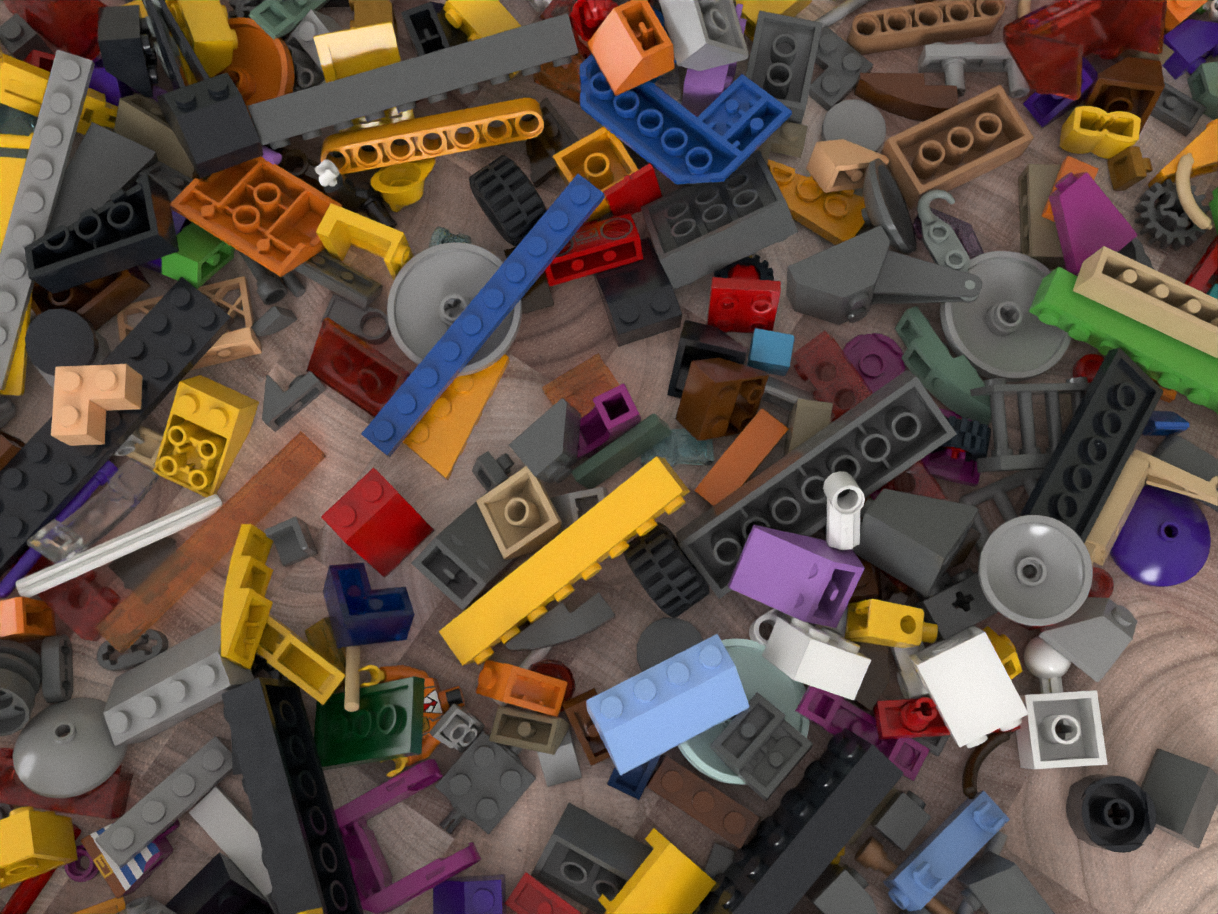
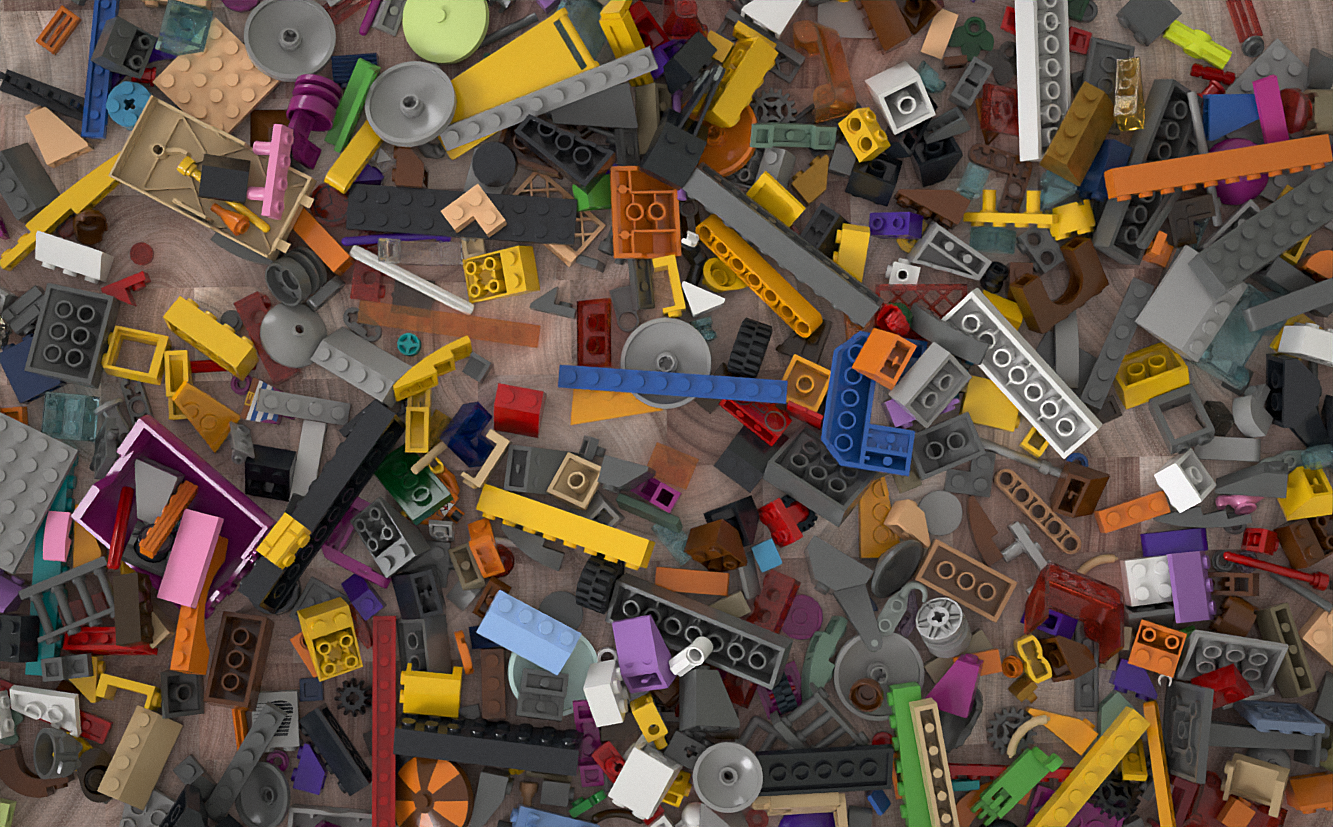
camera: 55 degrees right, 10 degrees up
(193, 607) = (405, 343): none -> teal wheel
(404, 574) = (491, 463): none -> tan panel
(412, 213) = (700, 300): none -> white slope
(415, 804) = (389, 537): none -> dark grey slope
(517, 818) = (419, 593): none -> black slope
(636, 812) = (464, 652): none -> orange tile
(939, 796) = (581, 805): none -> green plate
(1000, 199) = (943, 627): none -> light grey wheel
(1027, 339) = (866, 694): none -> reddish brown hair
(1103, 161) = (1012, 667): none -> orange plate

